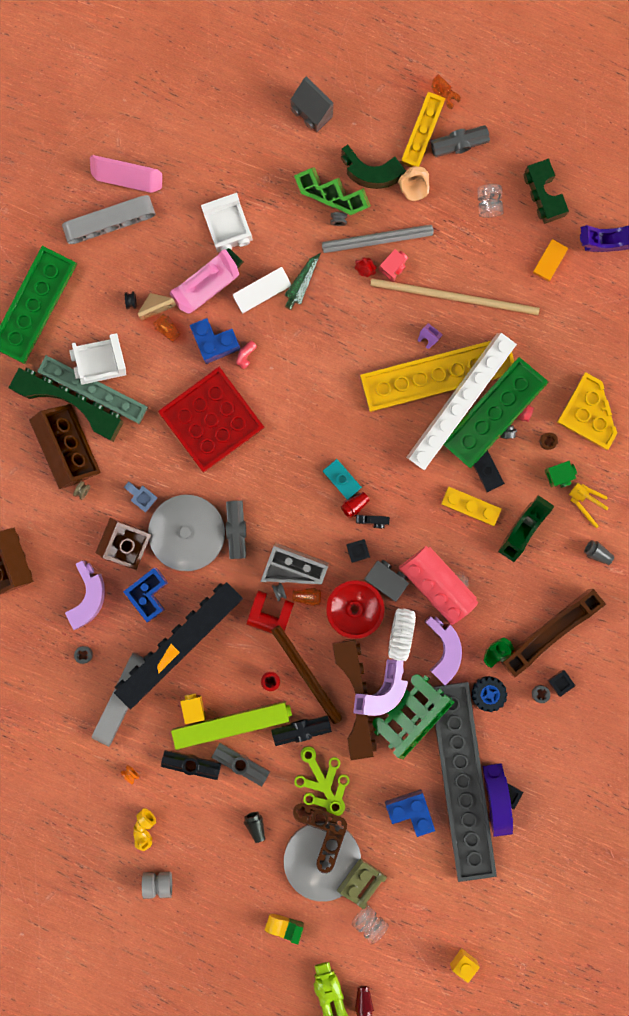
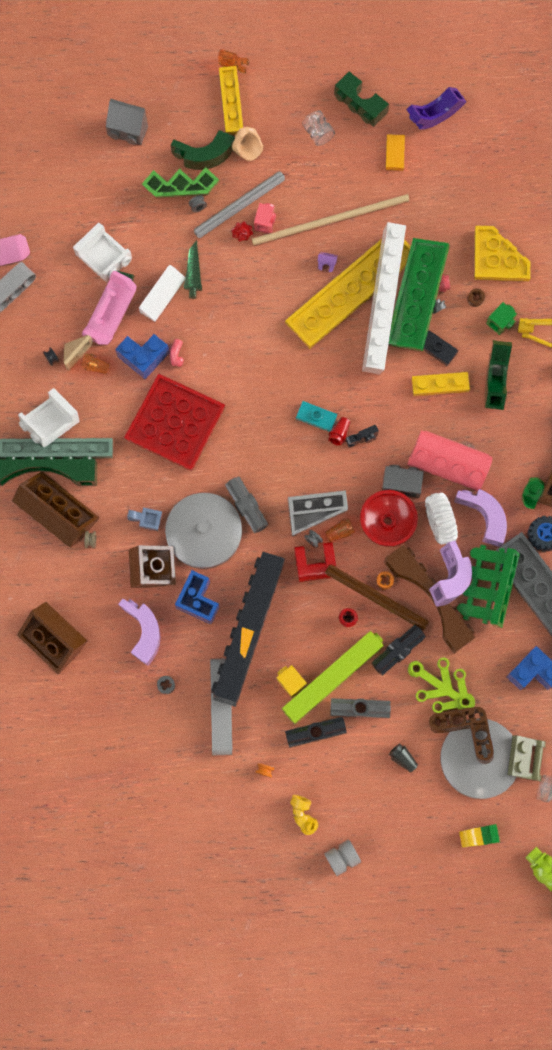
camera: 30 degrees left, 10 degrees down
(328, 664) = (391, 580): none -> orange bush
(358, 551) = (363, 469): black plate -> none
(460, 141) = (267, 94): dark grey piece -> none

